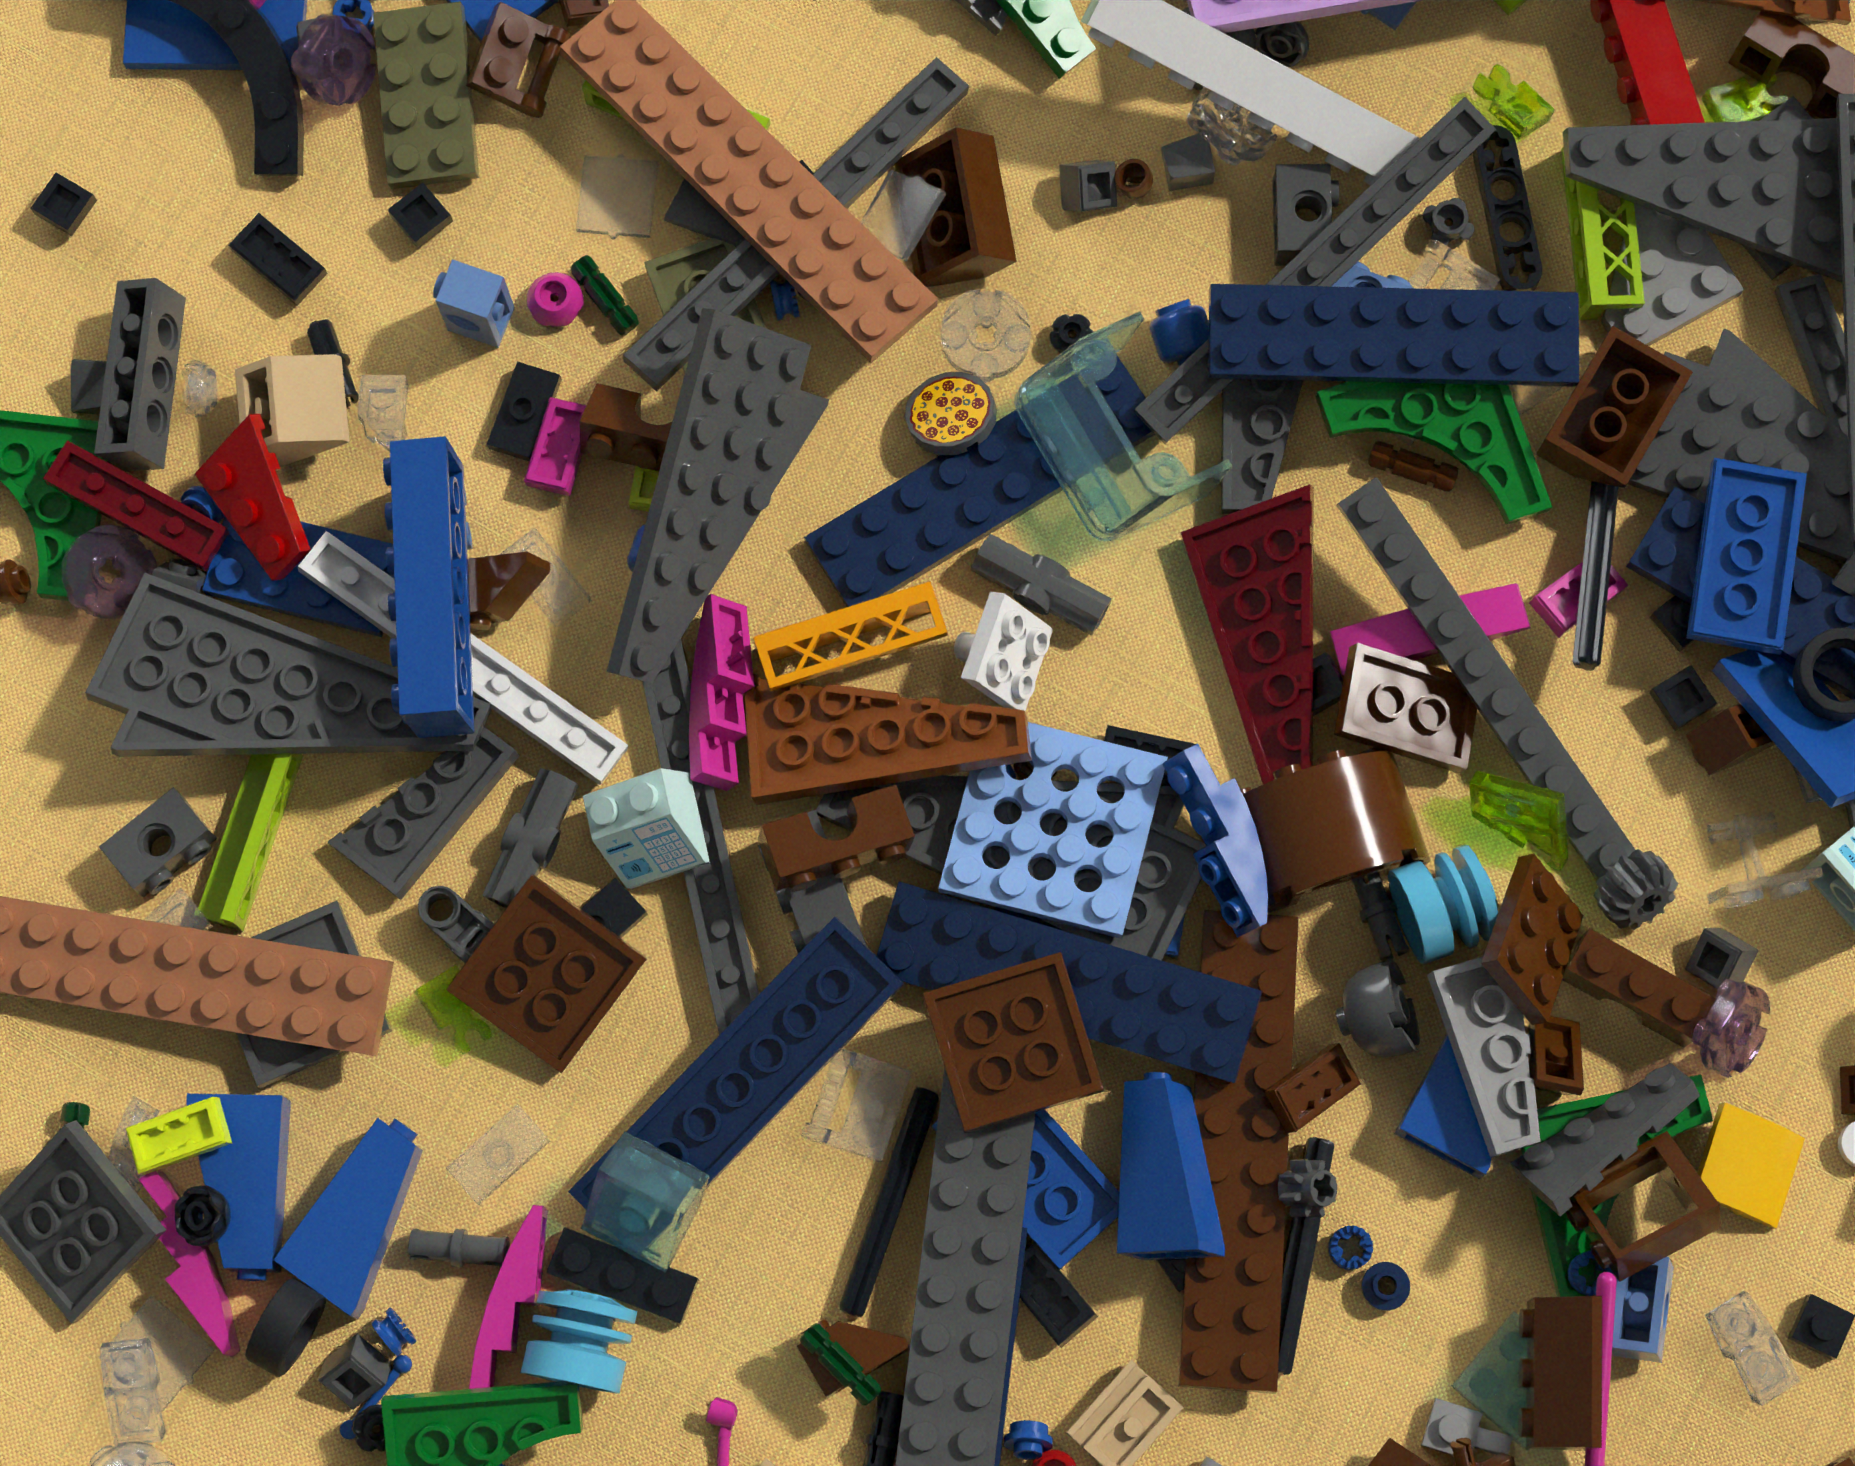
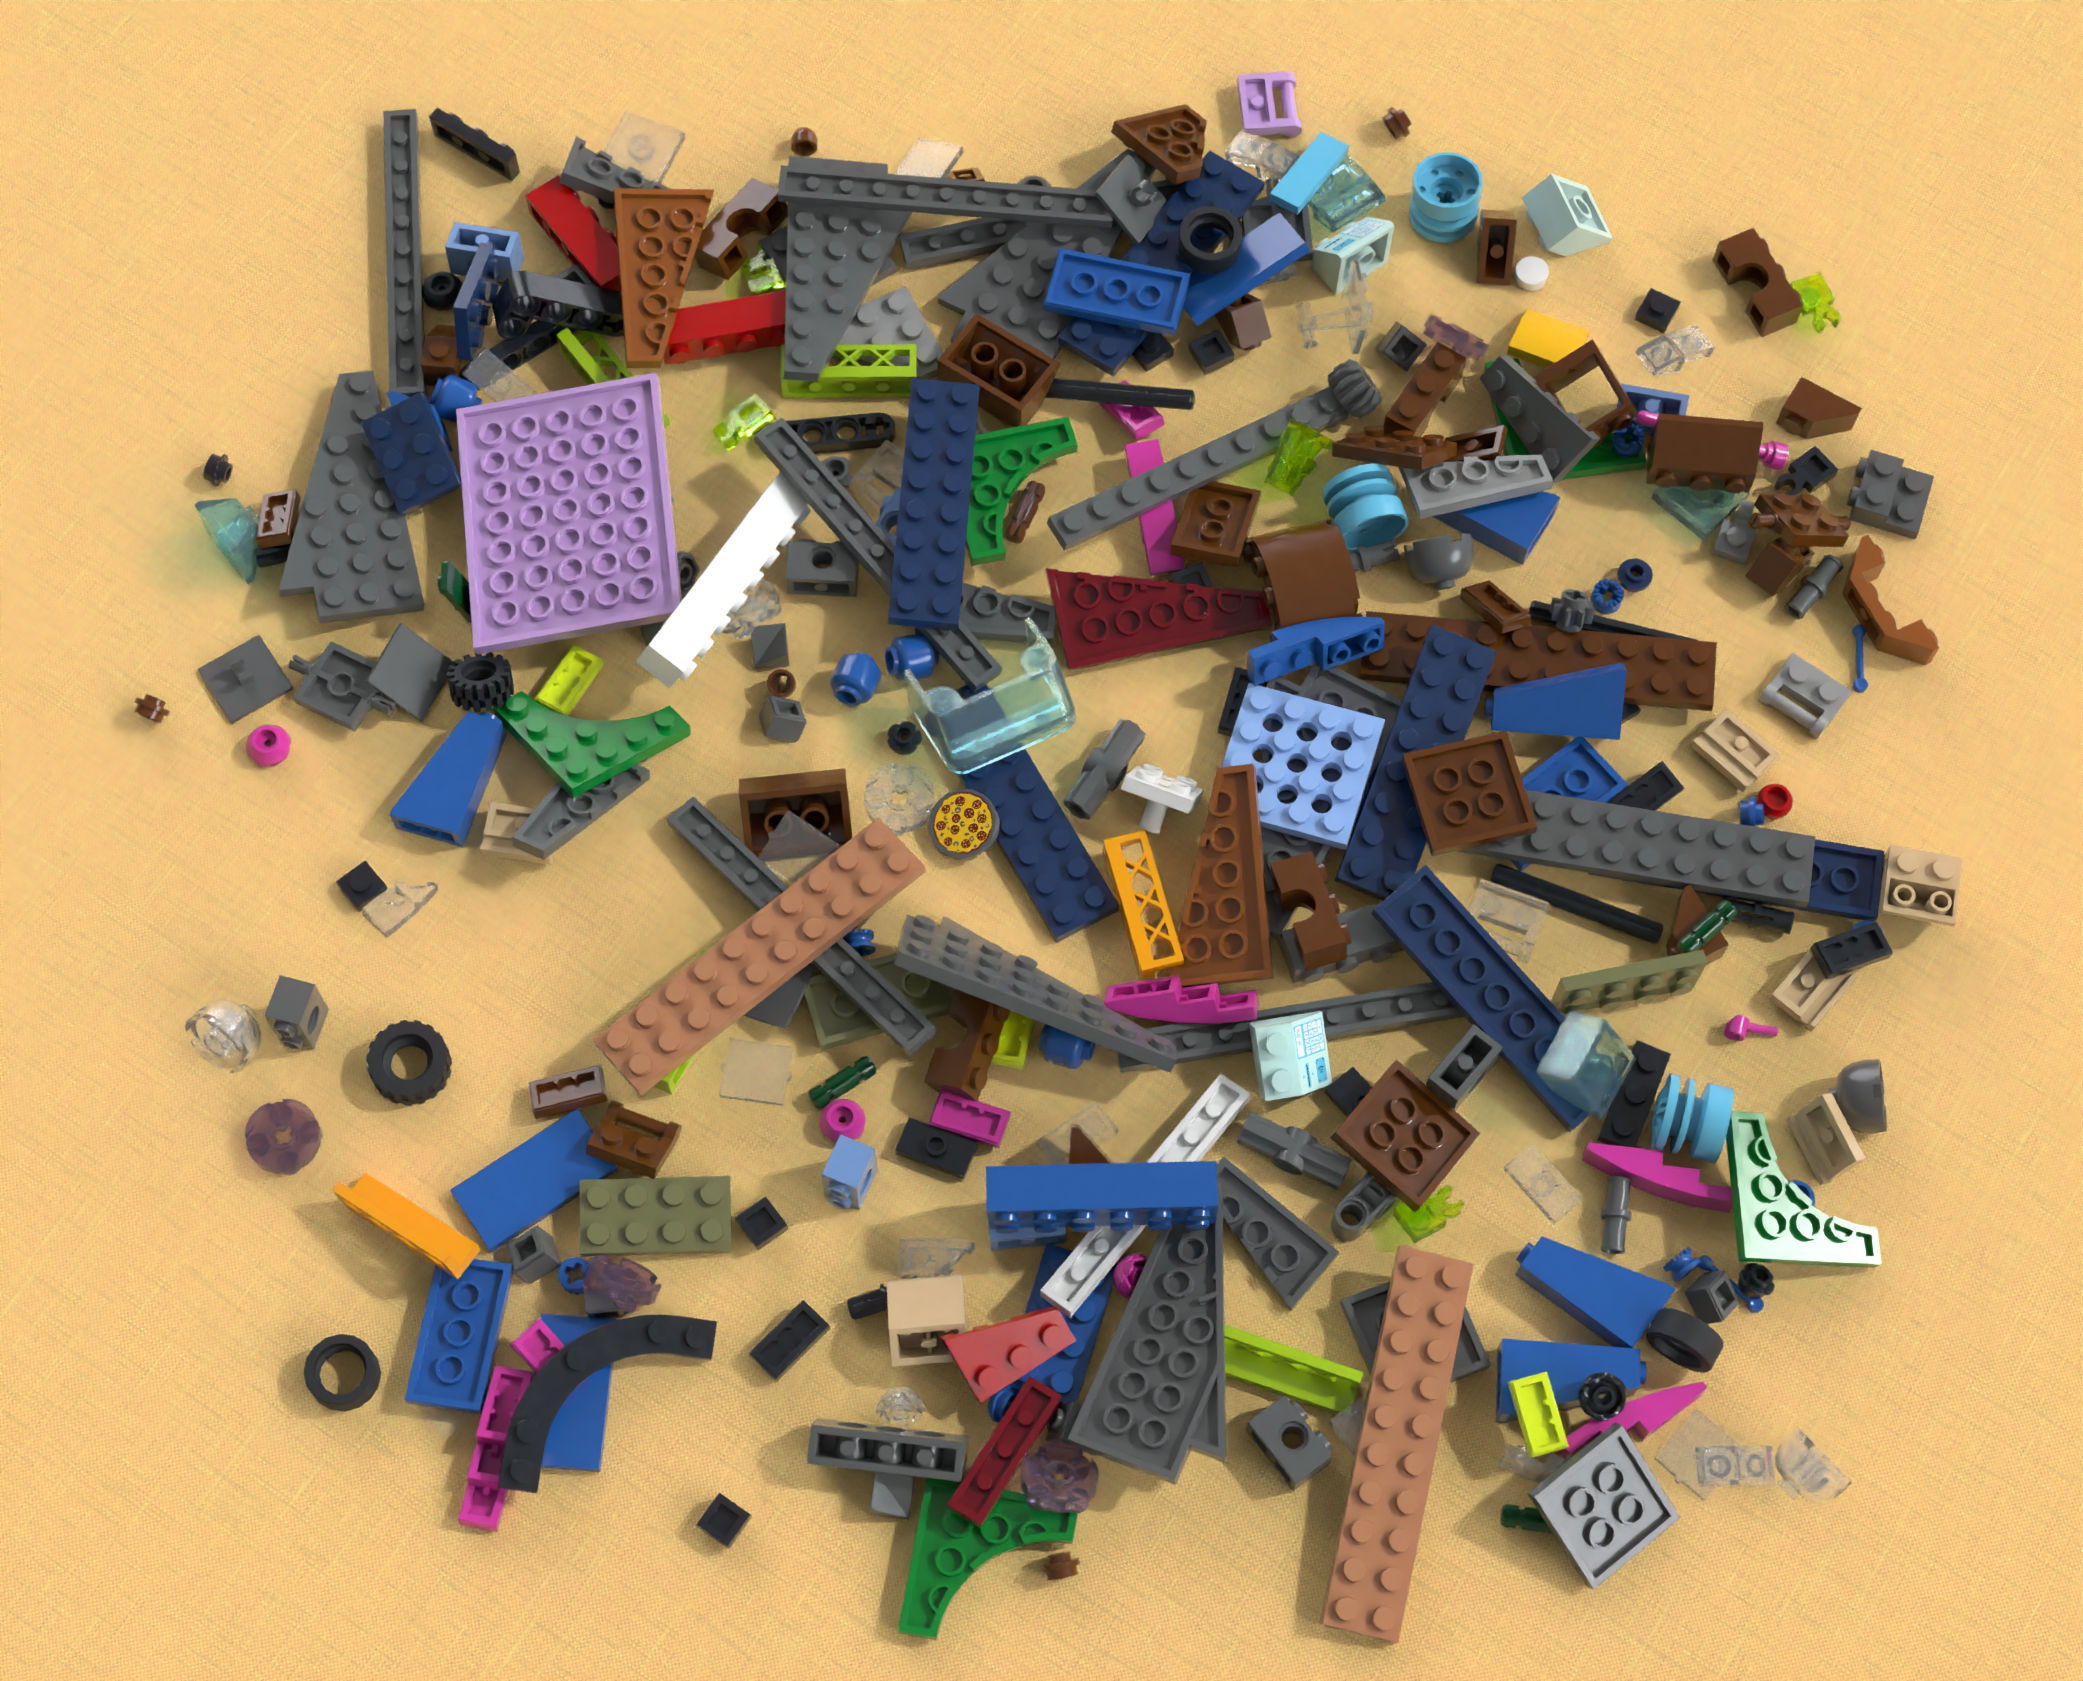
camera: 90 degrees left, 10 degrees down
(363, 640) = (1127, 1273): none -> dark pink plate
(639, 1045) = (1464, 1067): none -> dark grey brick
(756, 1242) = (1629, 982): none -> olive plate
(1146, 266) = (855, 679): none -> blue head

